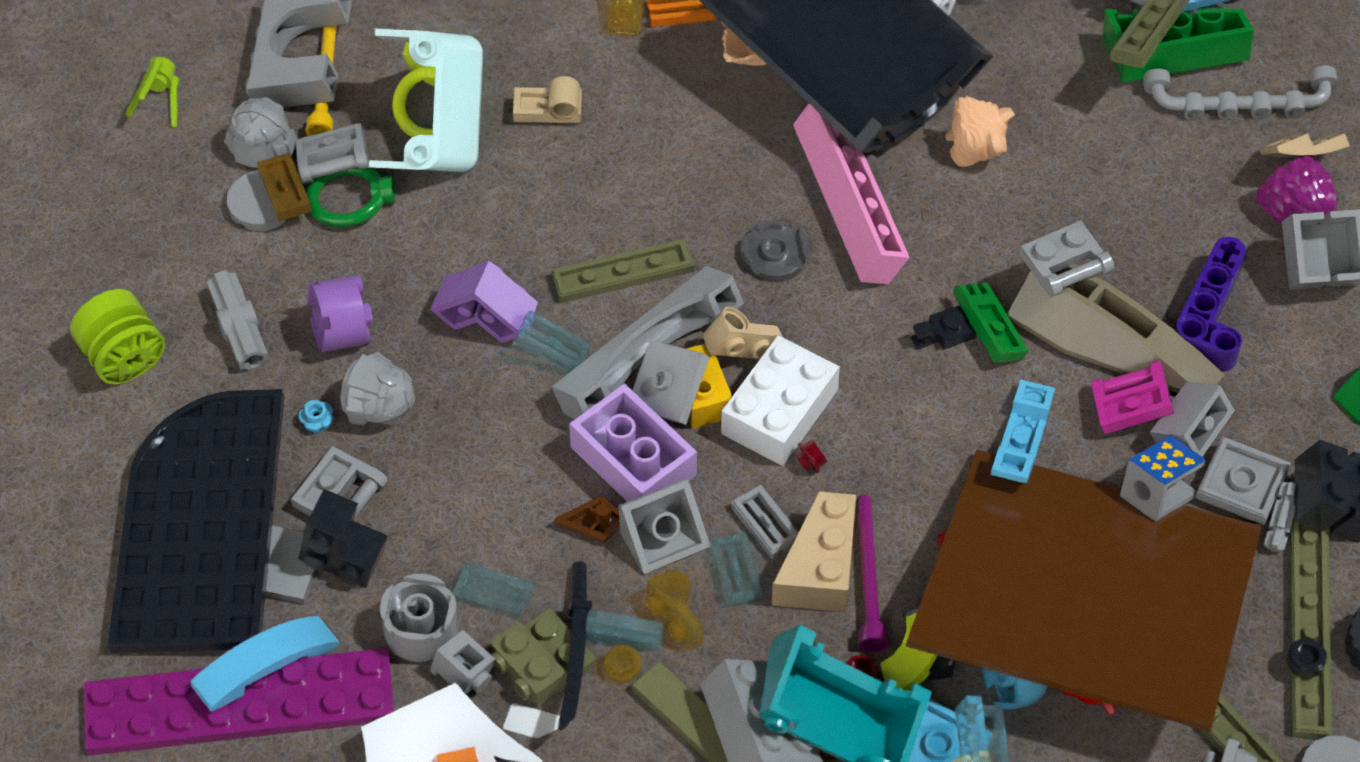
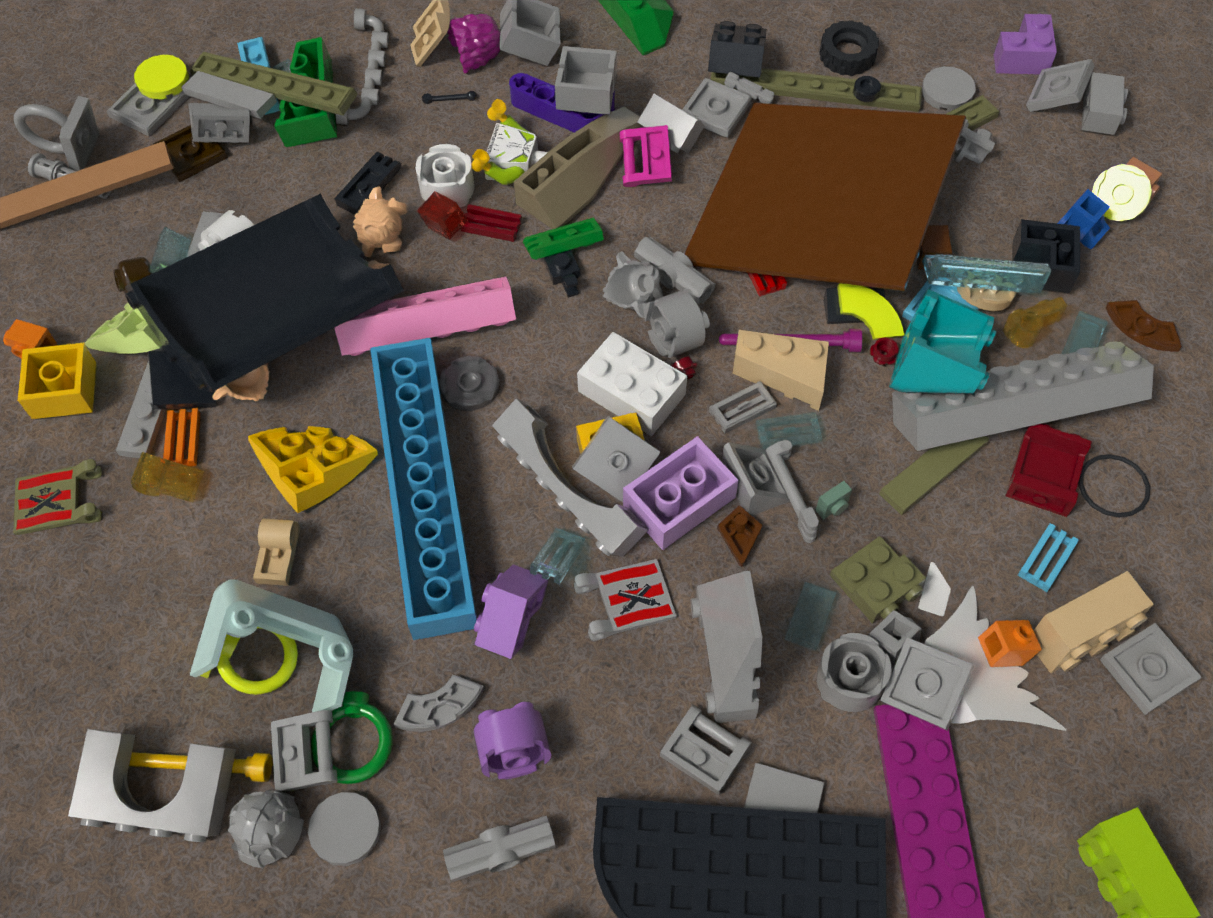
camera: 85 degrees left, 5 degrees up
(259, 656) = (904, 814): medium azure slope -> none
(284, 187) = (342, 798): pearl gold plate -> none
(316, 423) = (621, 779): medium azure plate -> none
(339, 543) = (778, 741): black brick -> none
(376, 391) = (607, 704): light grey helmet -> none
(384, 263) = (439, 708): none -> light grey tile
(400, 677) = (927, 683): none -> light grey plate
(442, 476) = (733, 645): none -> light grey wedge
(512, 421) = (631, 595): none -> light grey flag
(578, 610) = (874, 546): black sword -> none
(607, 578) = (806, 516): none -> light grey hinge
(622, 270) = (475, 502): olive tile -> none
(622, 663) = (881, 517): clear yellow plate -> none
(625, 630) = (855, 511): clear light blue tile -> none
(634, 209) = (422, 491): none -> dark azure brick
(636, 604) = (834, 501): none -> sand green plate
(657, 116) = (311, 462): none -> yellow brick
(675, 609) = (846, 468): clear yellow plate -> none
(736, 337) = (573, 404): tan plate -> none
(864, 435) = (676, 323): none -> light grey brick
(921, 395) = (633, 284): none -> light grey hair
(957, 440) = (675, 269): none -> light grey piece
(1002, 193) = (442, 215): none -> clear red brick
(1013, 228) = (492, 219): none -> dark red tile
(1023, 432) = (675, 232): medium azure slope -> none
(1031, 730) = (934, 242): none -> reddish brown brick
(1052, 120) = (374, 173): none -> black hinge
(1061, 250) = (521, 173): light grey plate -> none
(1062, 189) = (446, 172): none -> white brick
(1134, 250) = (510, 148): none -> torso
(1155, 476) = (727, 141): piece -> none
(1205, 168) = (428, 98): none -> black hinge
(1222, 314) = (586, 80): none -> light grey piece

